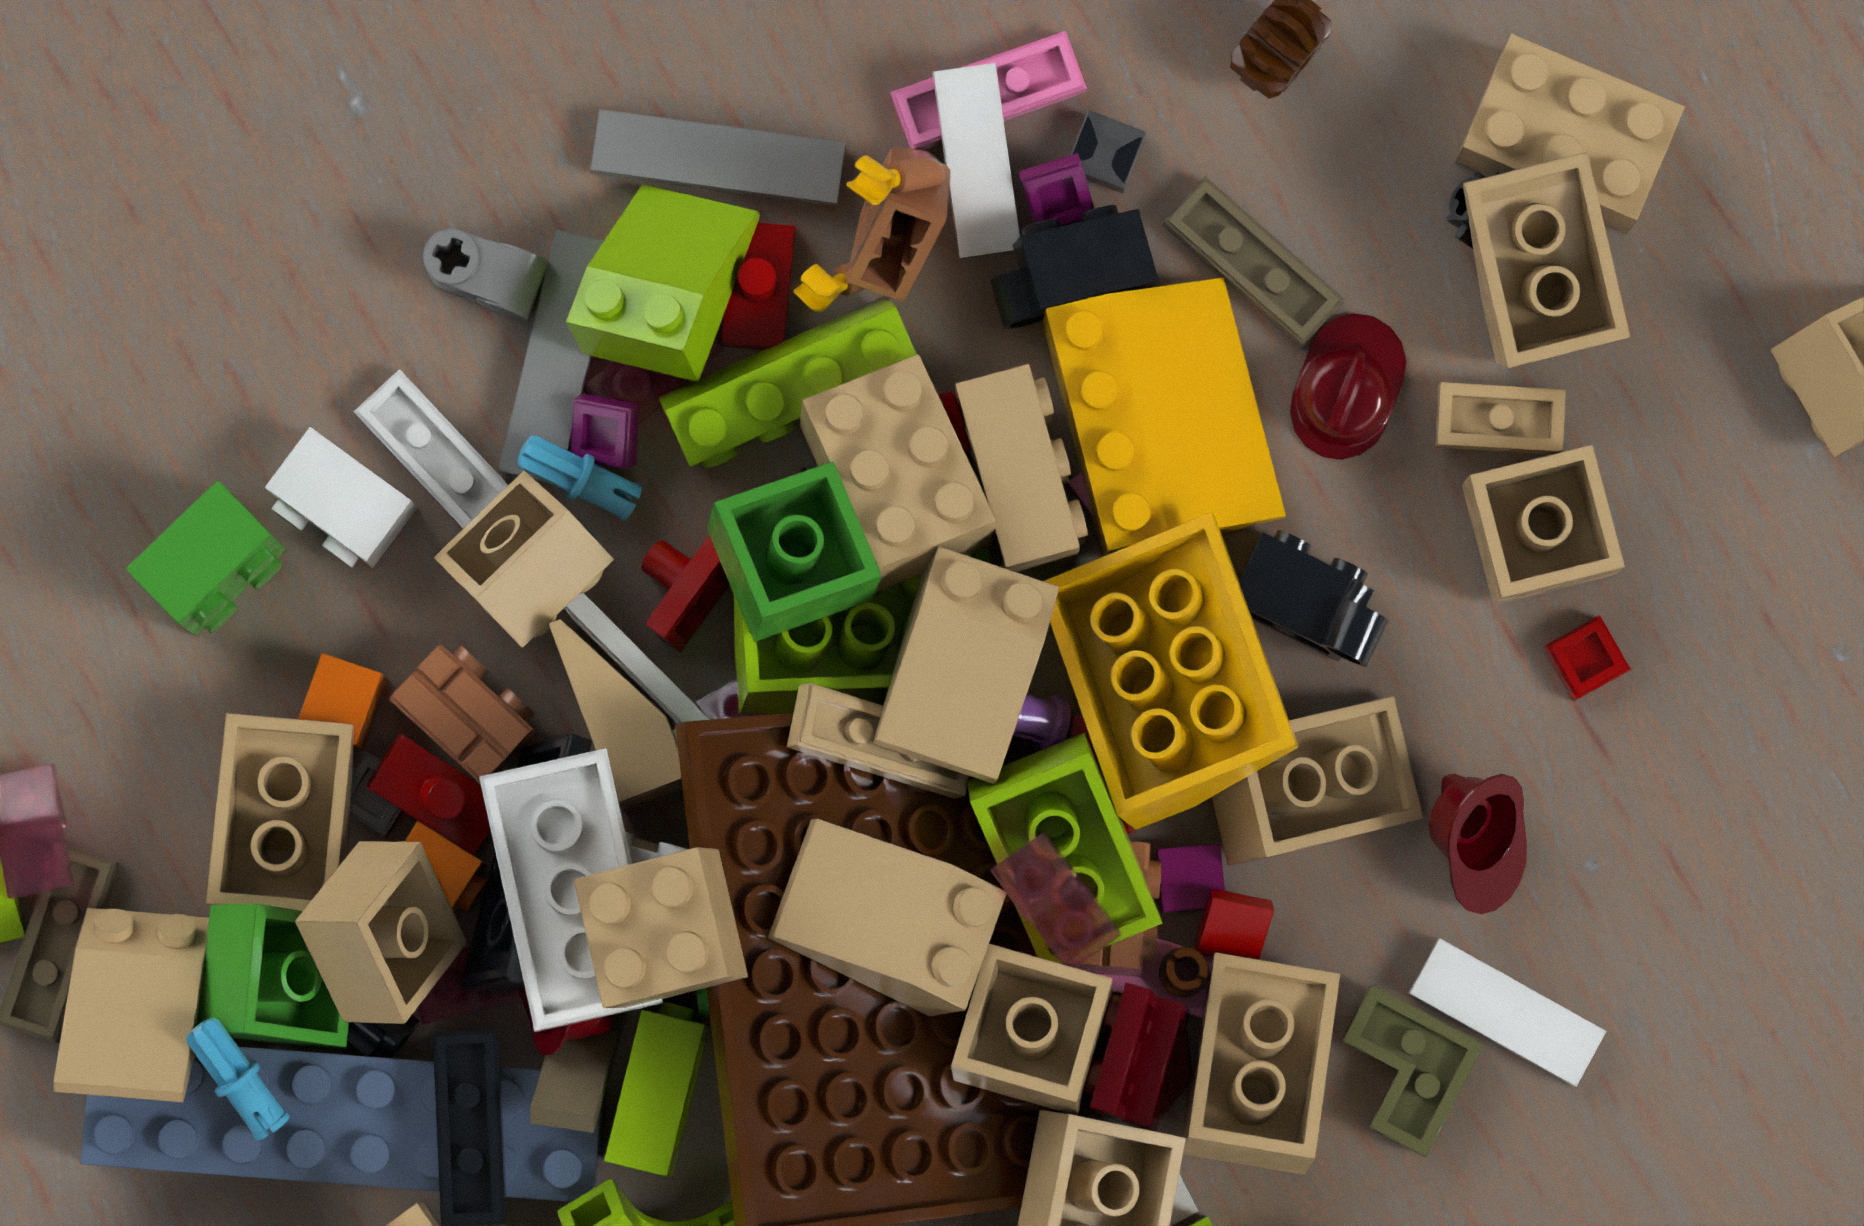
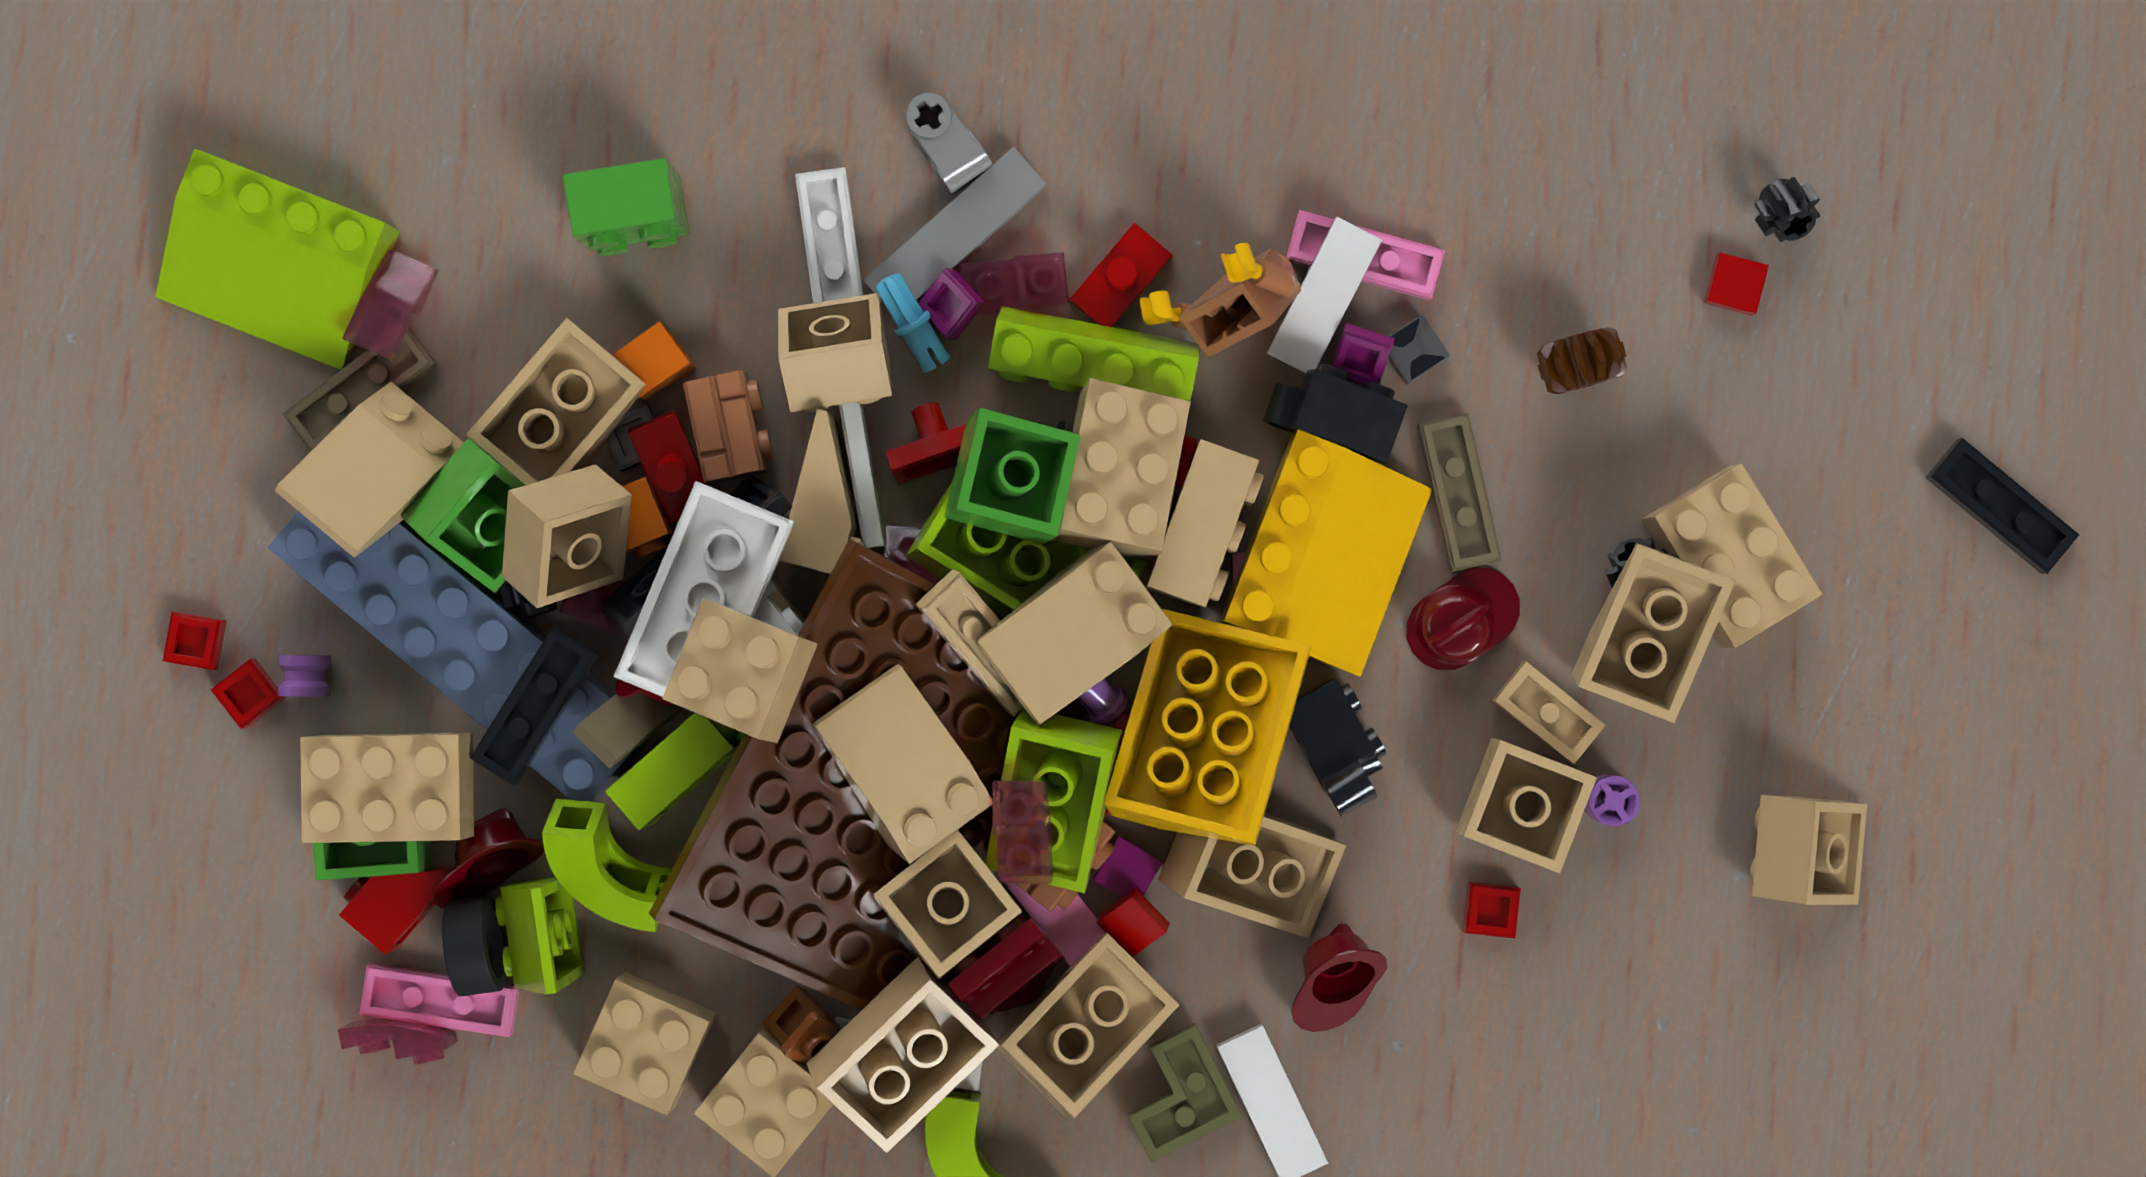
camera: 40 degrees right, 5 degrees up
(236, 1078) = (402, 566): medium azure axle -> none
(339, 498) = (744, 226): white brick -> none
(662, 282) = (1057, 231): lime slope -> none
(718, 158) = (1154, 173): light grey tile -> none
(1173, 983) = (1083, 918): reddish brown pin -> none
(1631, 451) = (1624, 803): none -> medium lavender wheel

